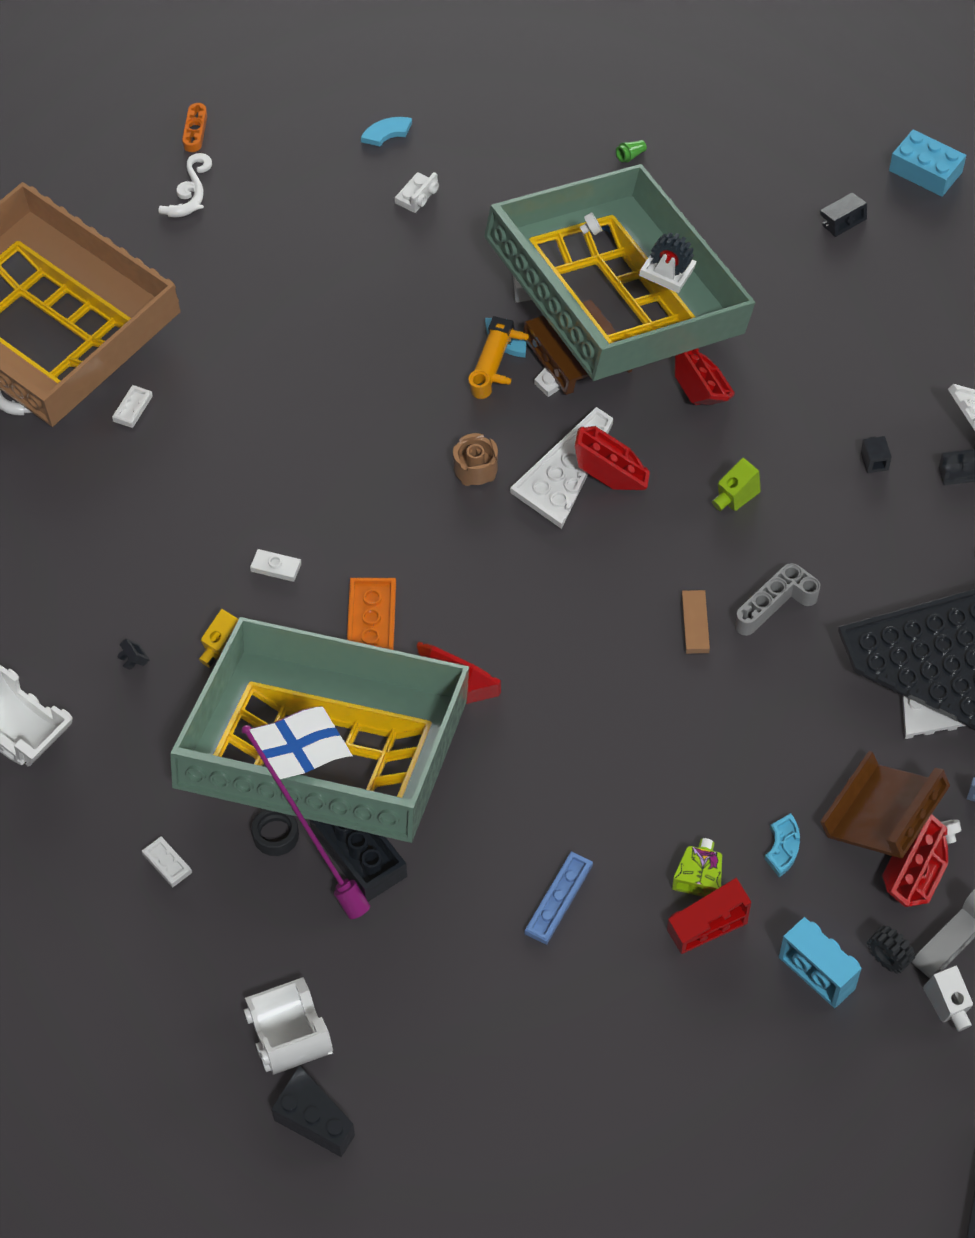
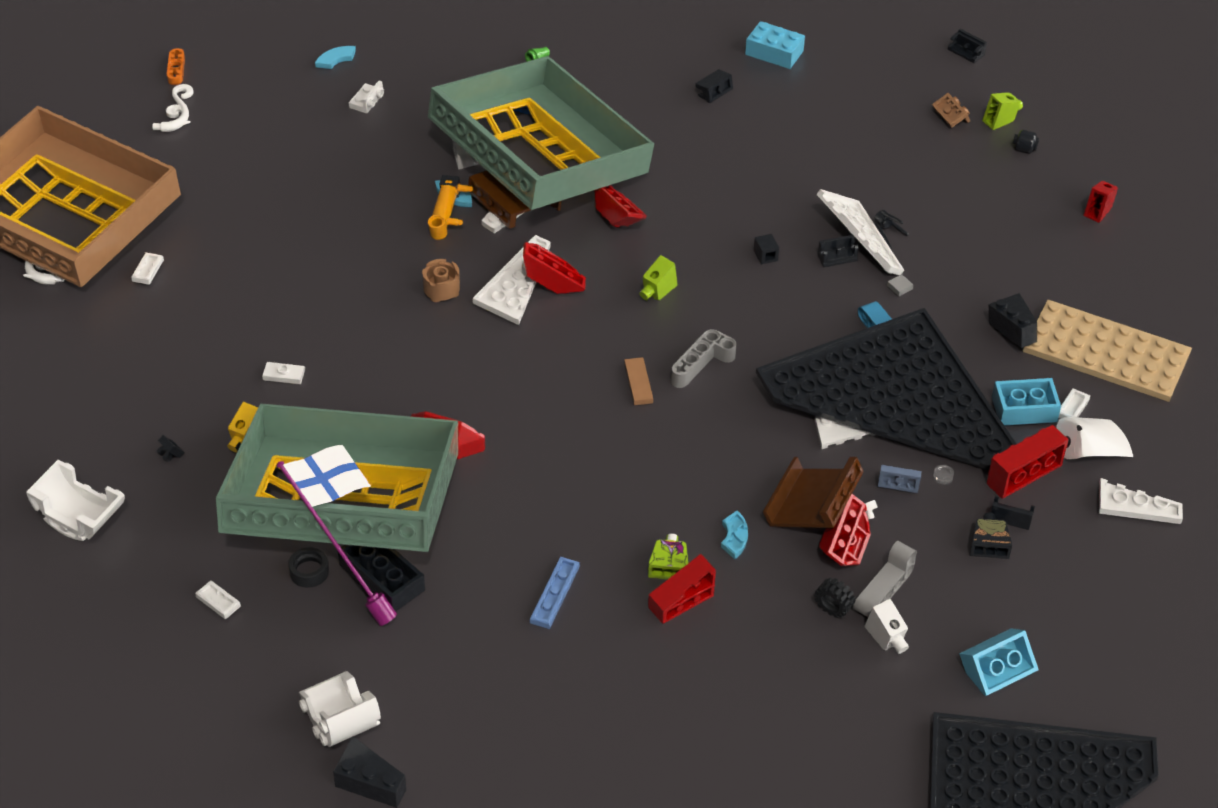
camera: 10 degrees left, 10 degrees down
(372, 611) = (369, 393): orange tile -> none
(591, 224) = (515, 95): white tile -> none
(669, 262) = (582, 115): plate -> none
(820, 962) = (778, 612): medium azure brick -> none

